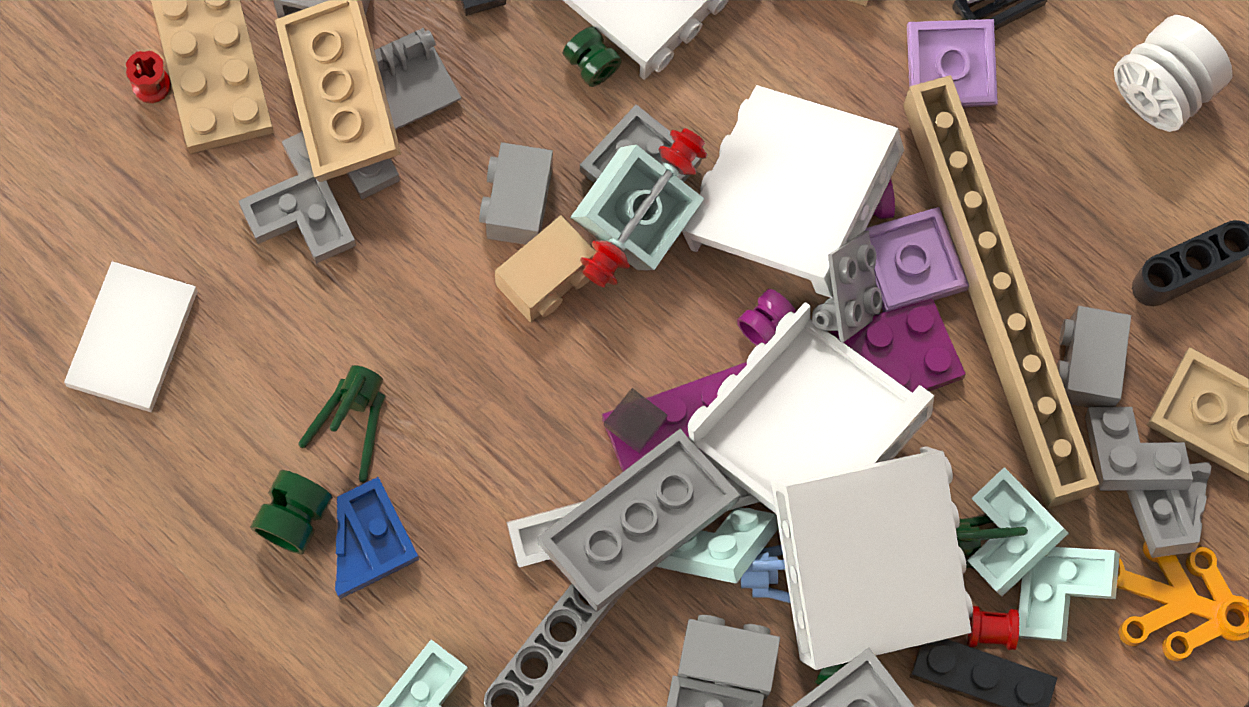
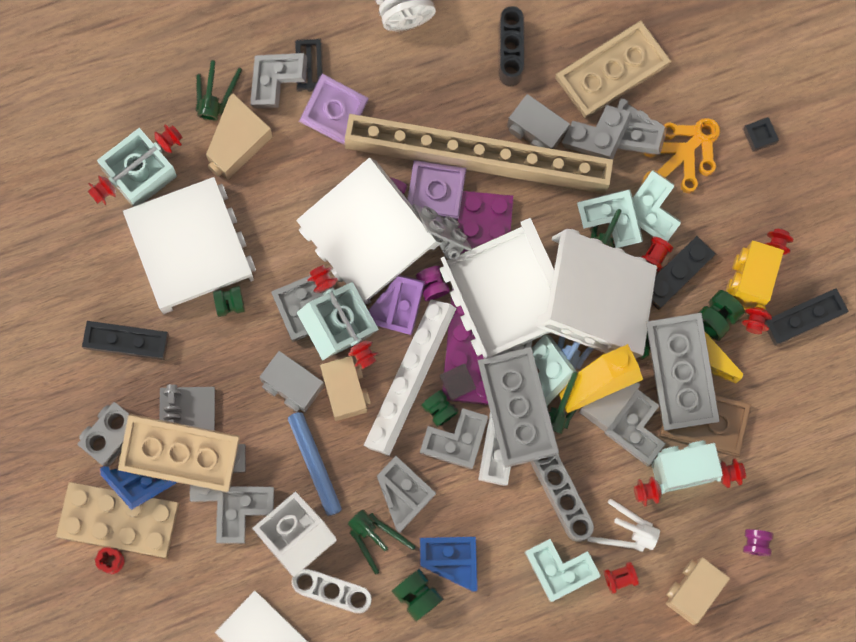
camera: 65 degrees left, 5 degrees up
(235, 371) = (320, 581): none -> white beam
(262, 57) = (132, 487): none -> blue wing
(296, 294) = (294, 534): none -> white brick
(417, 283) = (314, 463): none -> medium blue axle
(435, 425) = (403, 492): none -> light grey wing
(543, 474) = (459, 447): none -> light grey plate
(585, 416) = (439, 408): none -> dark green wheel
(611, 352) = (410, 377): none -> white plate
(656, 591) = (557, 416): none -> dark green plant
(708, 286) = (398, 305): none -> medium lavender wing
(749, 624) = (603, 377): none -> yellow slope

